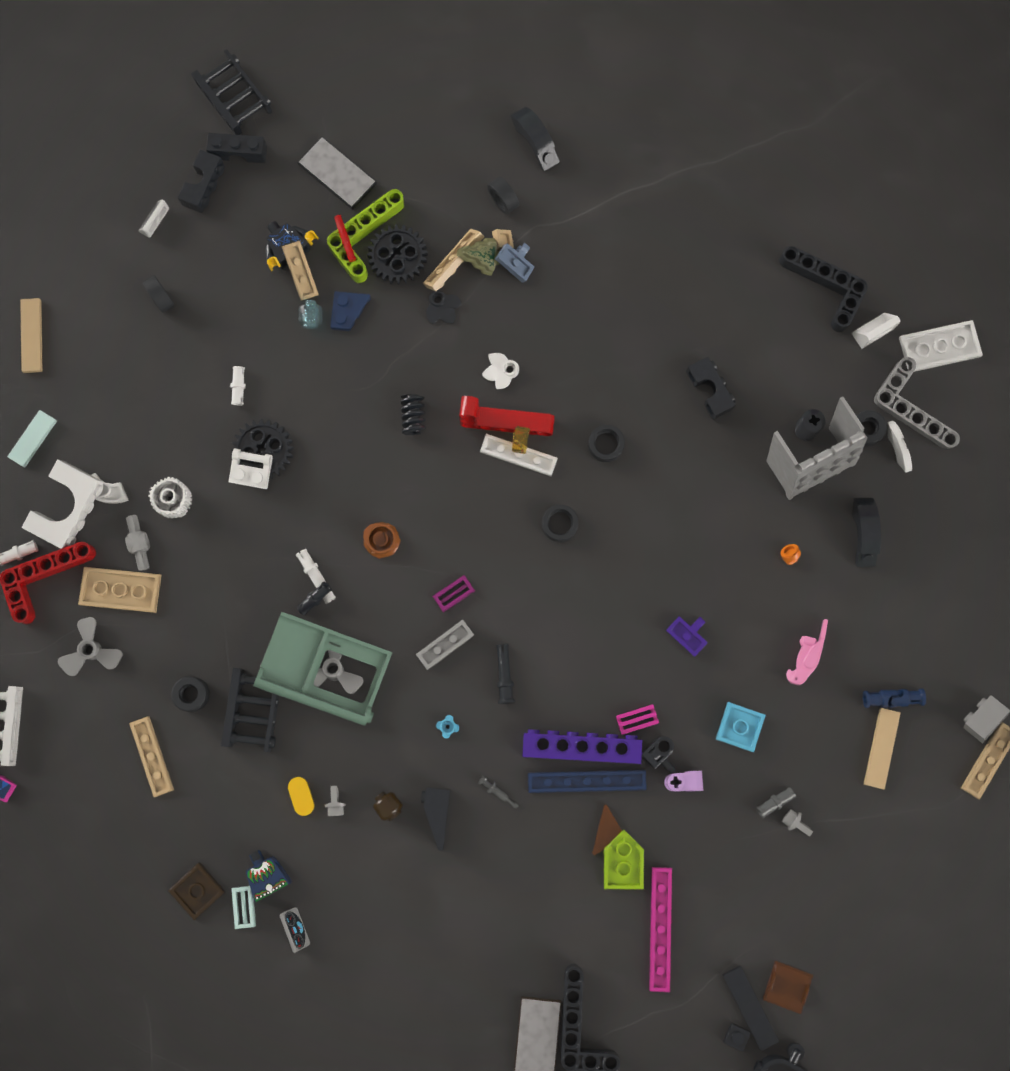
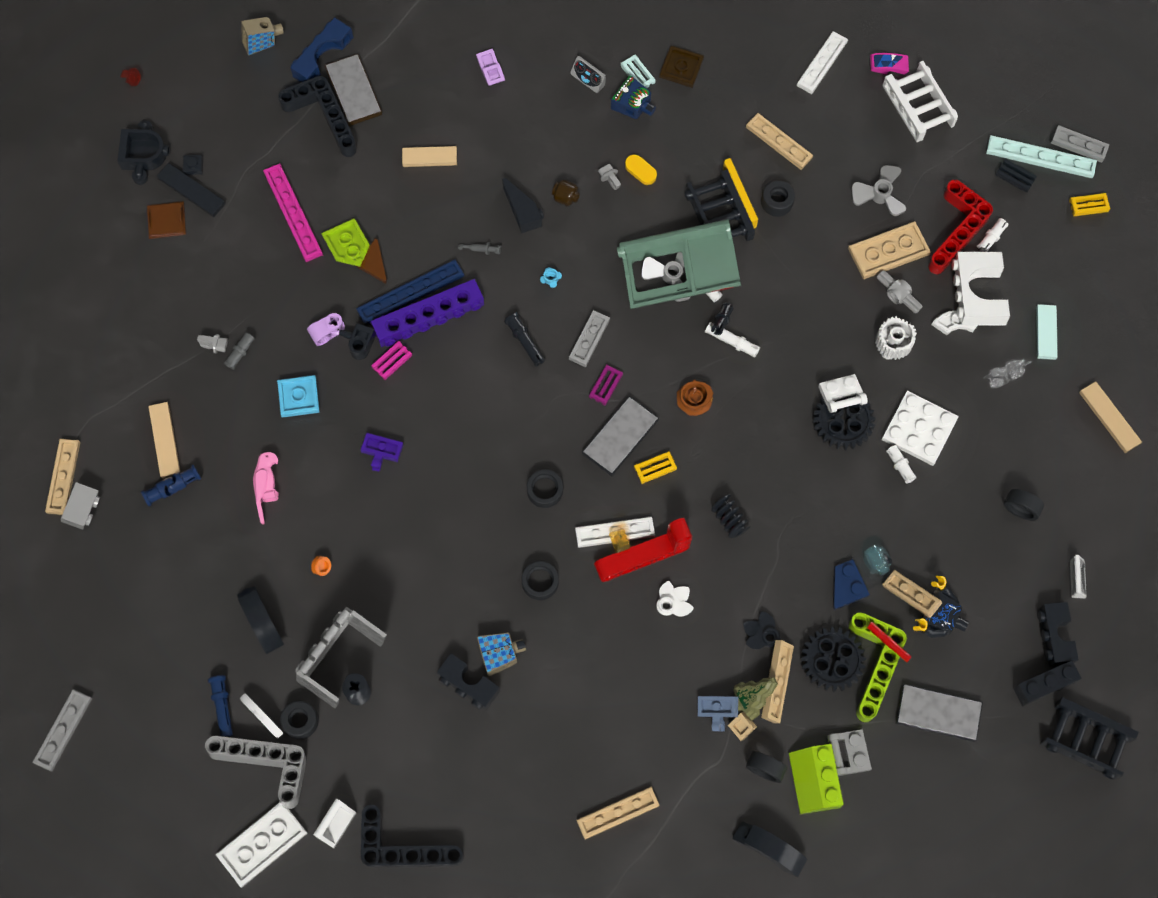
camera: 150 degrees right, 10 degrees down
(56, 821) = (822, 62): none -> white tile
(92, 416) = (1010, 372): none -> clear hinge
(200, 410) = (920, 428): none -> white plate
(218, 750) = (728, 164): none -> yellow tile
(387, 992) = (490, 67): none -> lavender slope
(422, 178) = (855, 751): none -> light grey plate
(449, 494) = (637, 467): none -> yellow tile
(466, 538) = (620, 436): none -> flat silver tile
(467, 170) = (816, 779): none -> lime slope
(498, 920) = (429, 156): none -> tan tile
(639, 226) = (618, 813): none -> tan tile
(672, 400) = (499, 651): none -> torso
(927, 481) = (219, 697): none -> dark blue pin

